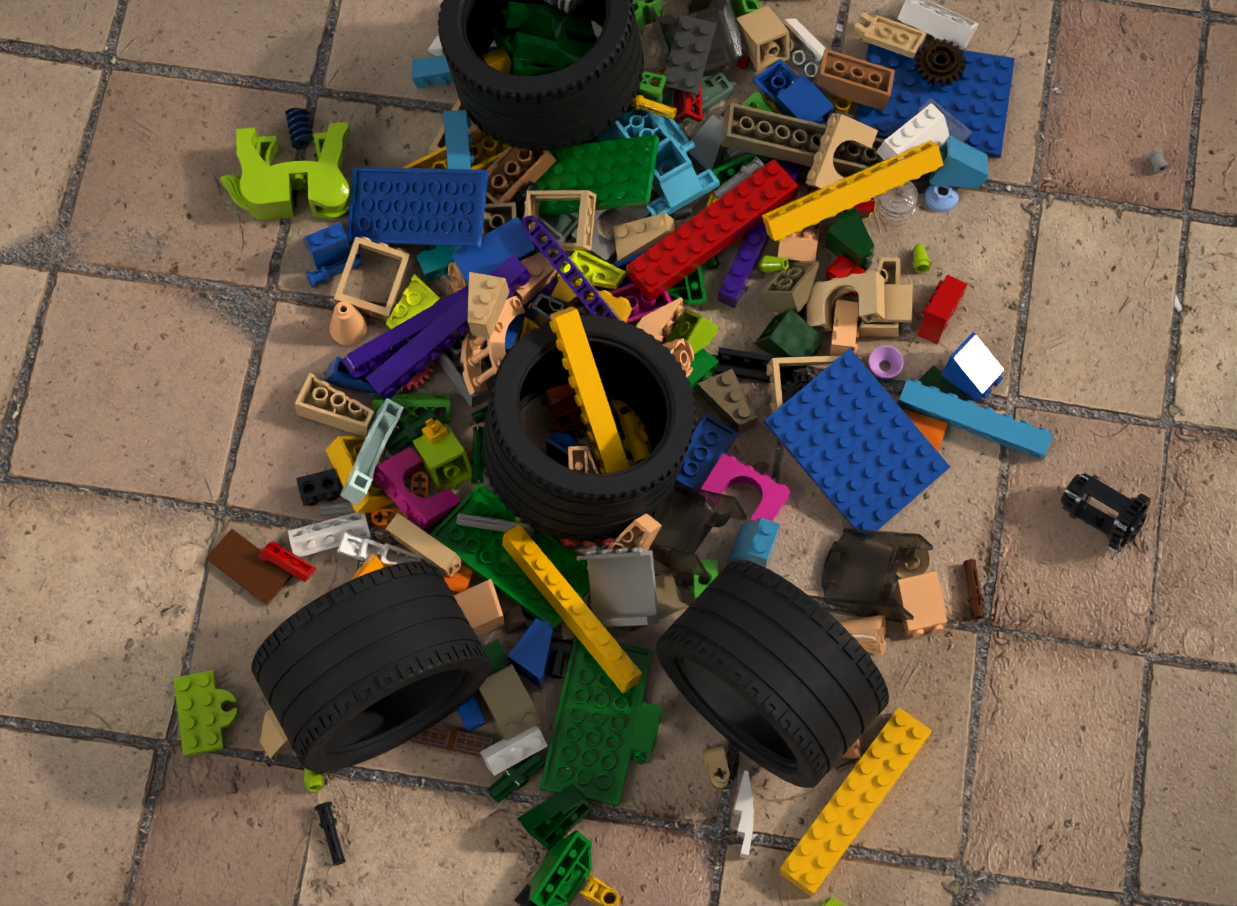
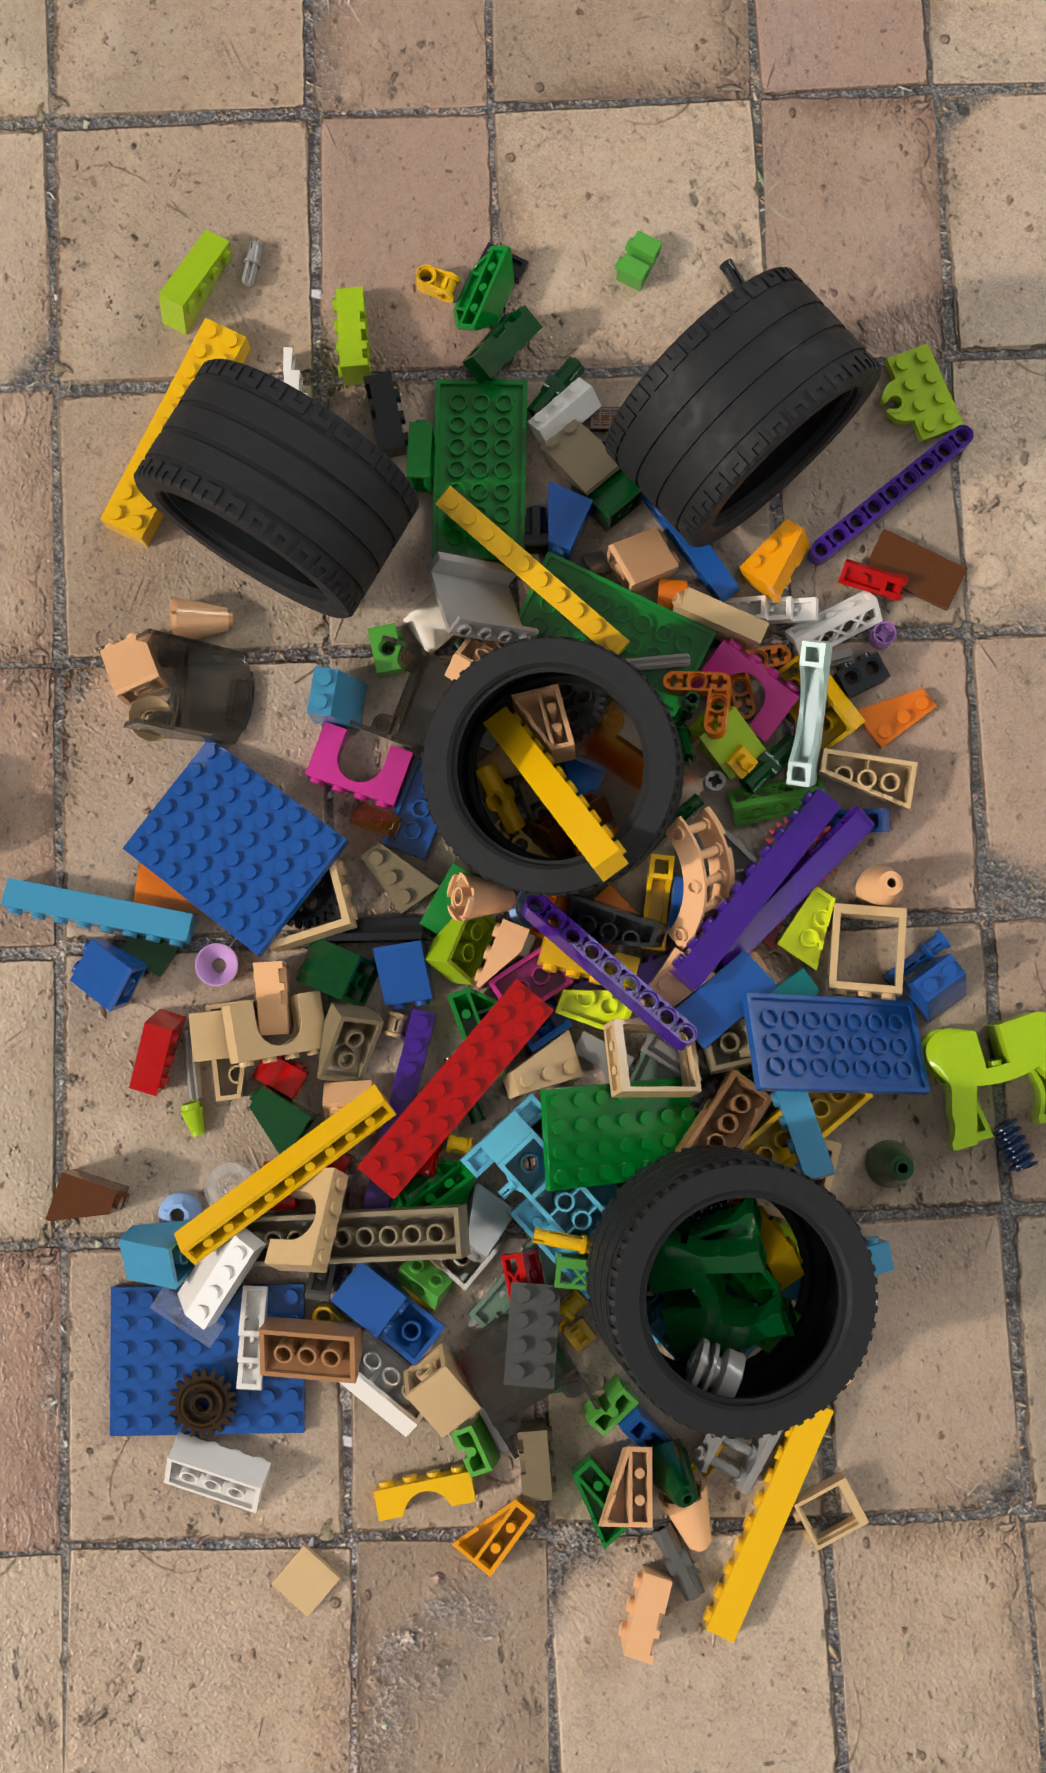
camera: 170 degrees right, 15 degrees up
(241, 629) = (898, 487): none -> dark purple beam
(288, 513) = (886, 632): none -> medium lavender wheel
(299, 453) = (893, 716): none -> orange wing
(394, 131) = (889, 1164): none -> dark green cone
(417, 879) = (638, 262): none -> bright green brick
(444, 482) = (713, 694): none -> orange beam
(459, 421) = (720, 778): none -> light grey bush
(466, 479) = (689, 705): none -> dark green pin
(485, 303) = (718, 906): tan wedge -> none
(654, 62) = (579, 1334): none -> yellow tile
(668, 777) = (385, 415): none -> black wedge
(684, 857) = (352, 335): none -> lime wedge
(737, 327) = (404, 974): none -> blue slope
(739, 447) = (376, 821): none -> clear orange slope
(744, 173) = (429, 1182): light grey pin -> none
(751, 295) = (391, 1024): none -> tan bush
(772, 264) = (376, 1070): lime cone -> none
(889, 35) = (277, 1435): tan tile -> none
(898, 99) = (252, 1317): none -> white slope
(917, 297) = (192, 1069): none -> light grey axle
(975, 597) = (77, 707): reddish brown pin -> none
(1009, 213) = (86, 1195): none -> reddish brown slope

